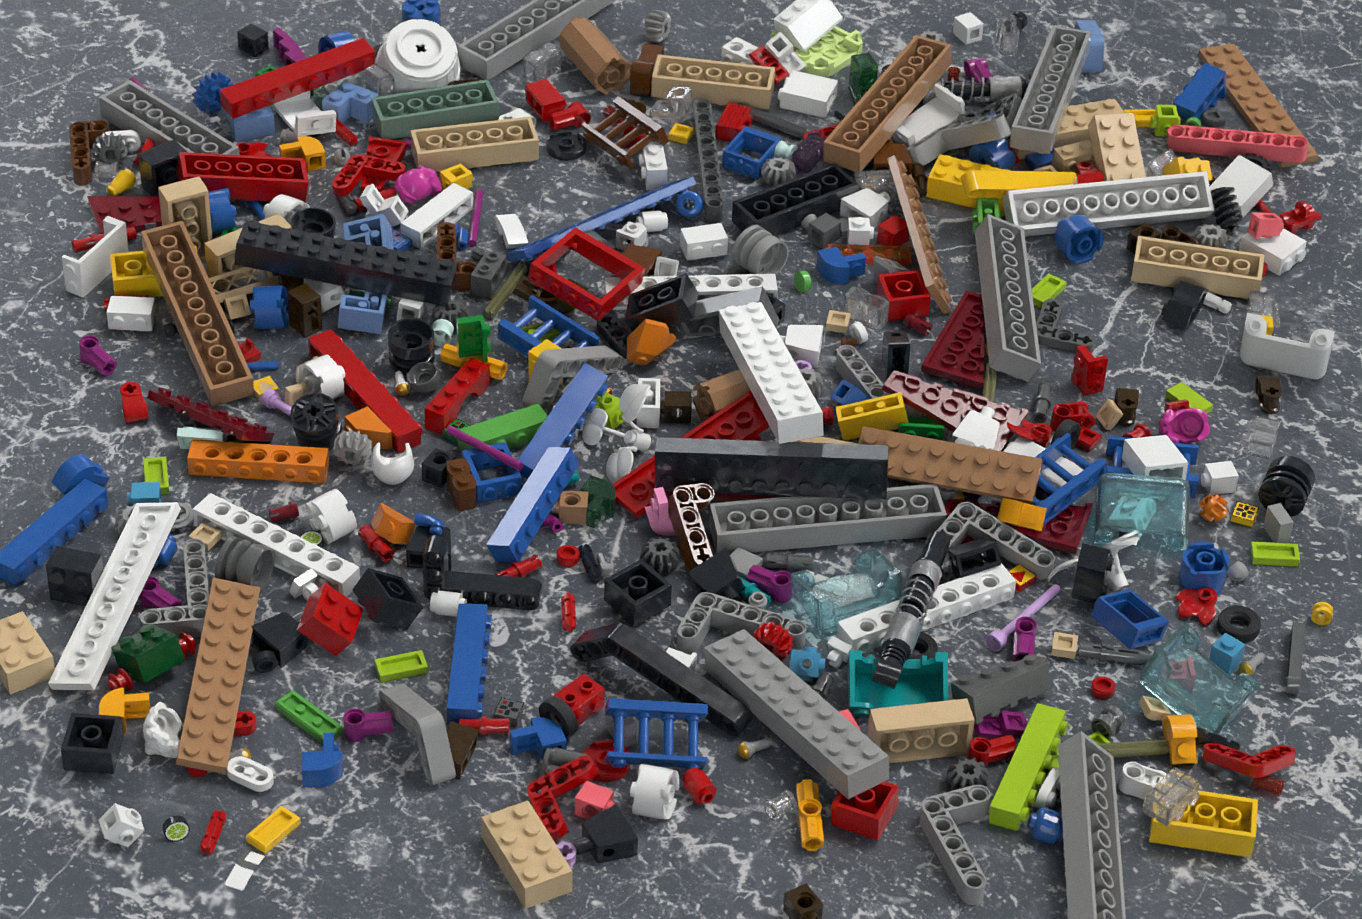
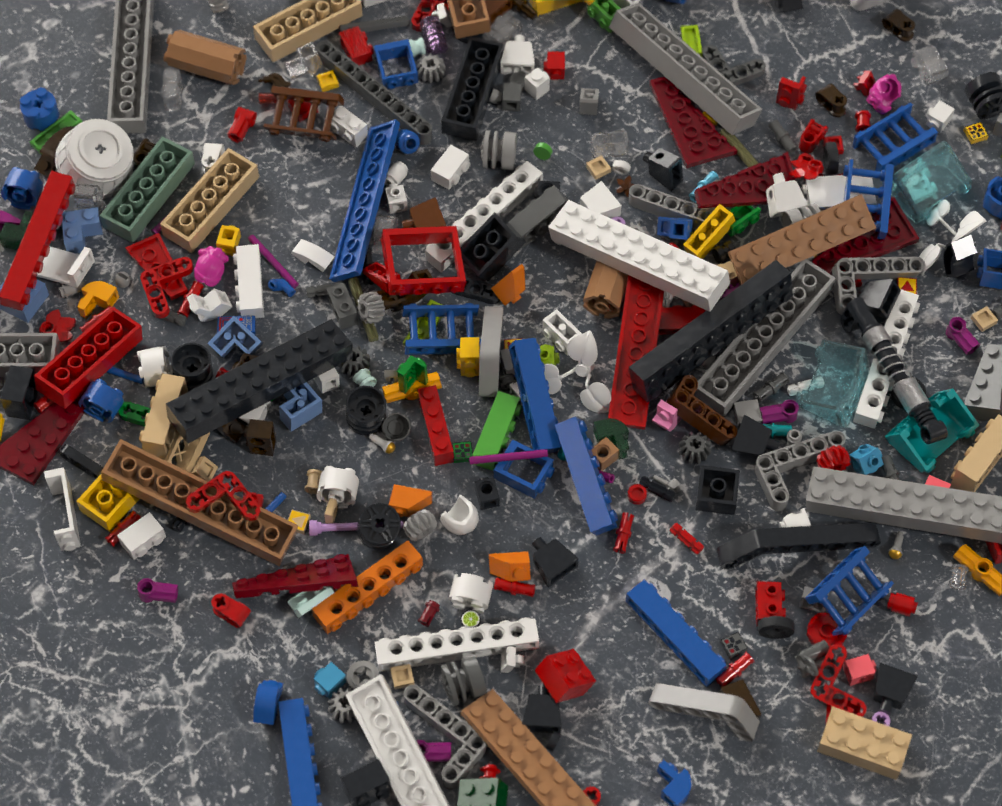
camera: 40 degrees left, 20 degrees up
(80, 244) = (37, 493): red pin -> none
(156, 471) = (309, 653): lime tile -> none
(188, 203) = (105, 428): tan brick -> none
(220, 308) = (223, 489): none -> red beam
(270, 307) = (233, 453): blue brick -> none
(308, 716) = (623, 757): bright green tile -> none
(345, 133) = (103, 257): red axle -> none
(359, 724) = (668, 730): magenta piece -> none
(365, 390) = (369, 469): red brick -> none
(387, 599) = (581, 628): black brick -> none
(401, 666) = (633, 668): lime tile -> none
(429, 521) = (543, 544): blue arm -> none
(446, 603) = (611, 596): white brick -> none
(448, 250) = (298, 309): reddish brown beam -> none
(461, 484) = (514, 494): reddish brown brick -> none
(475, 587) = (595, 580): black beam -> none
(505, 282) = (371, 307): none -> light grey gear
(539, 735) = (779, 646): blue brick -> none
(544, 98) = (211, 122): red brick -> none
(566, 146) = (263, 150): black tile -> none
(642, 70) = (256, 49): reddish brown beam -> none
(654, 792) = (890, 633): white brick -> none
(666, 267) = (449, 209): white tile -> none
(676, 407) = (580, 317): dark brown brick -> none
(838, 268) = (549, 122): blue brick -> none
(838, 651) = (873, 433): white tile -> none
(900, 254) = (555, 94): clear orange tile -> none
(905, 293) = (620, 113): red brick -> none
(917, 324) = (642, 131): dark red pin -> none
(920, 234) = (579, 54): medium nougat plate -> none
(998, 638) = (945, 346): lavender piece -> none
(1022, 514) = (877, 244): light orange brick -> none
(1109, 414) = (831, 116): tan tile -> none
(1154, 457) = (905, 136): white brick -> none
(1182, 391) = (856, 66): lime tile -> none
(1213, 508) = (961, 144): orange gear -> none

